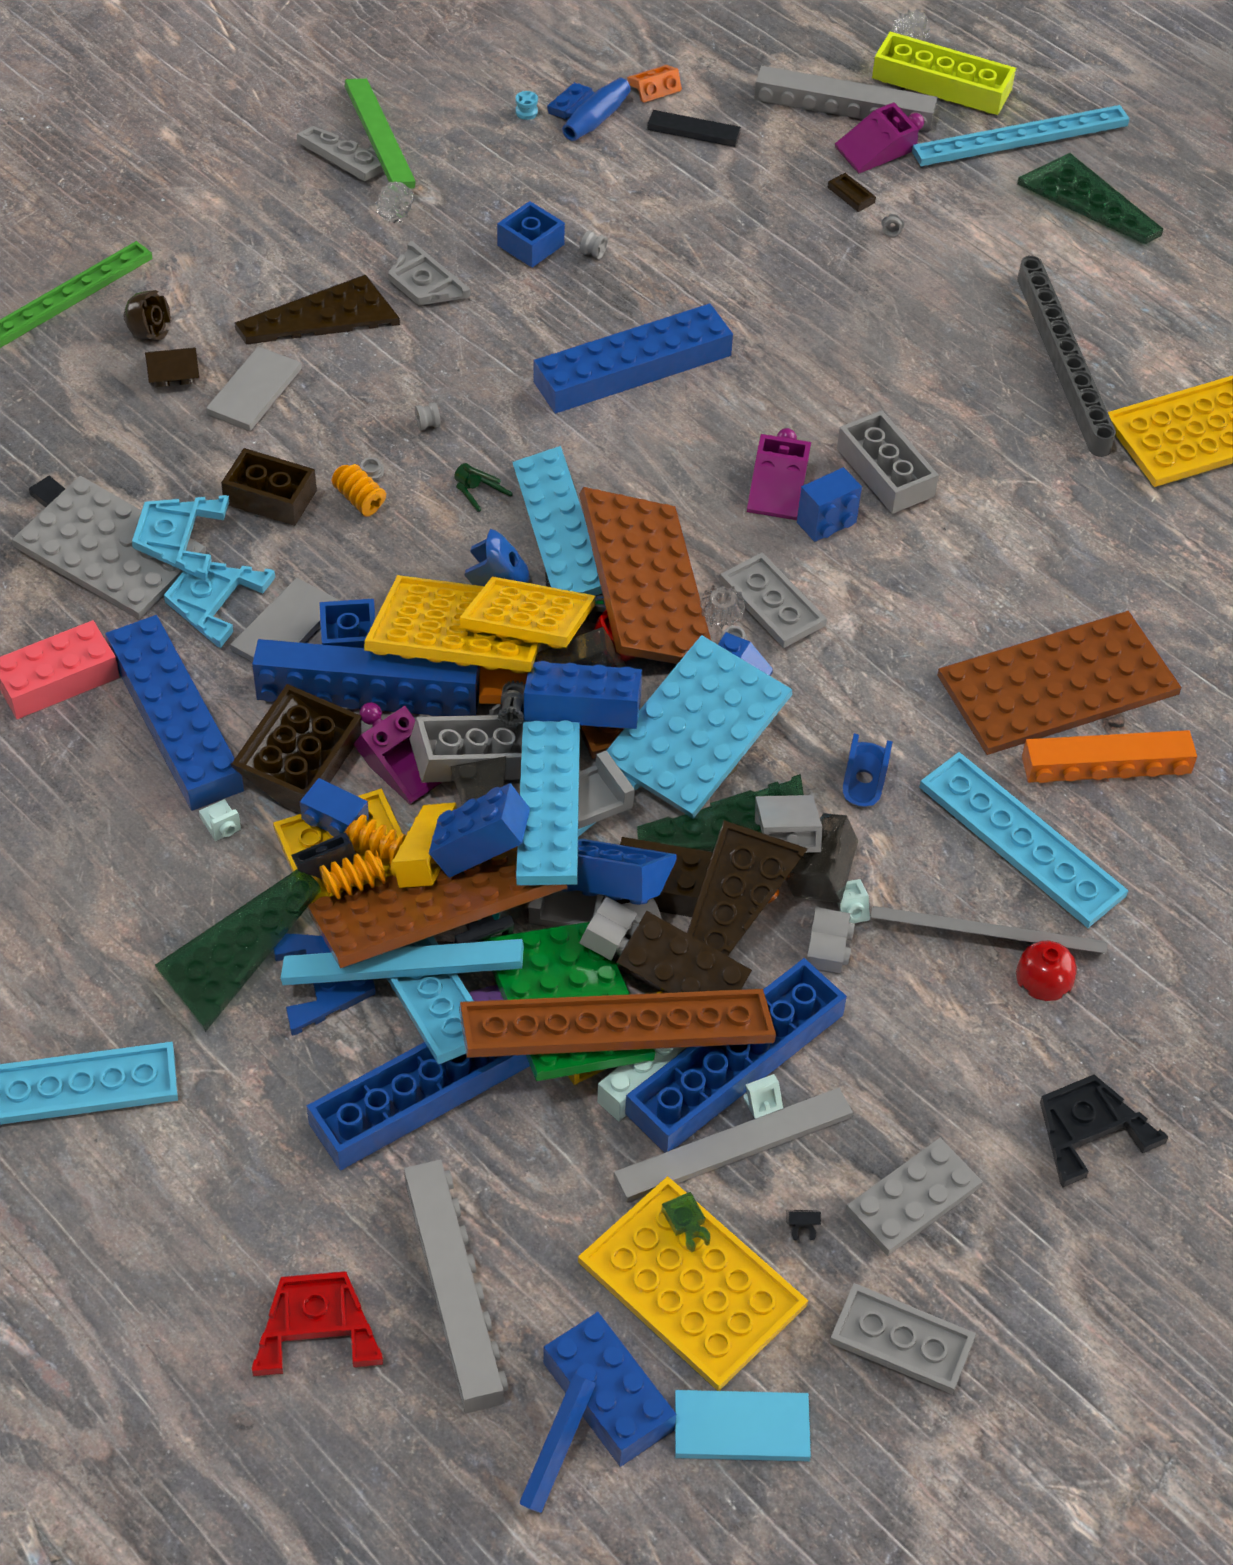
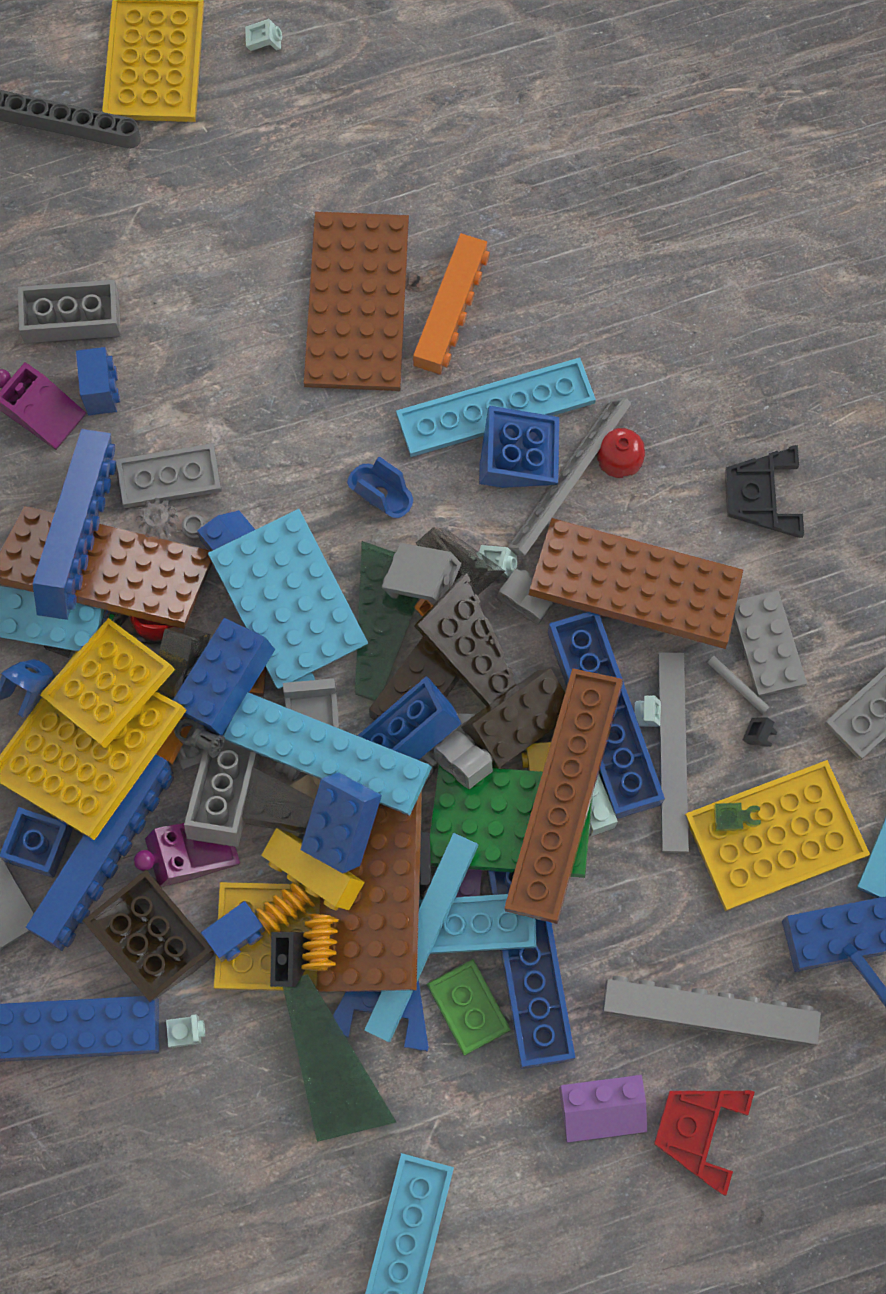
camera: 65 degrees left, 20 degrees up
(299, 1214) = (603, 1108): none -> medium lavender slope
(354, 1049) = (468, 1007): none -> bright green tile
(668, 525) = (74, 524): none -> brick
(848, 1183) = (734, 681): none -> light grey bar
(903, 1033) = (637, 583): none -> dark orange plate
(986, 869) = (519, 449): none -> blue slope

